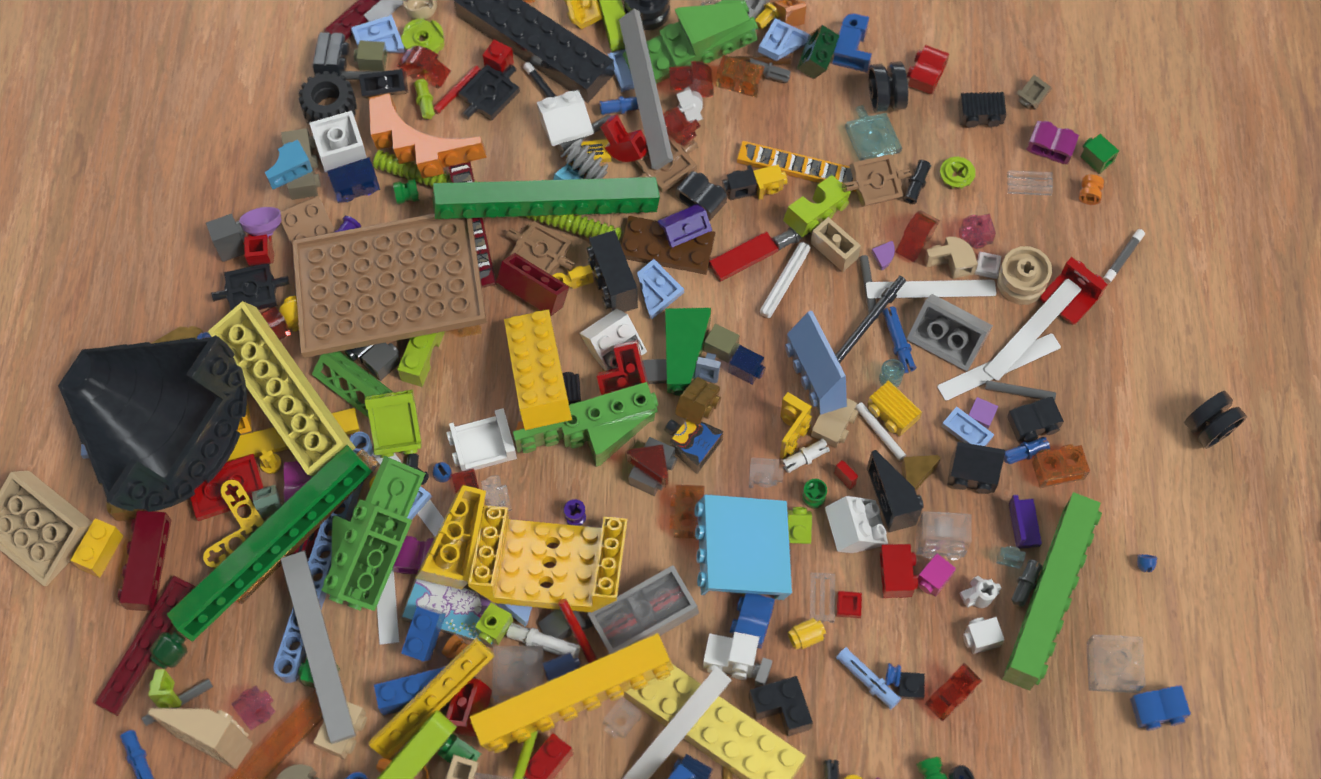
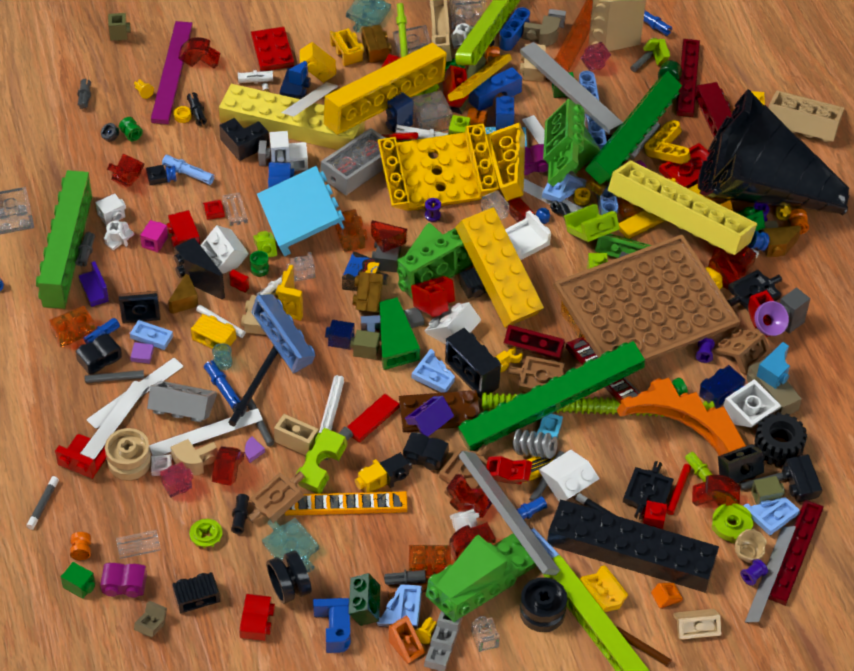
camera: 160 degrees right, 15 degrees down
(267, 501) = (654, 159): sand green panel -> none
(806, 634) = (239, 181): yellow brick -> none
(943, 534) = (154, 252): clear brick -> none
(1010, 557) = (101, 258): clear light blue plate -> none

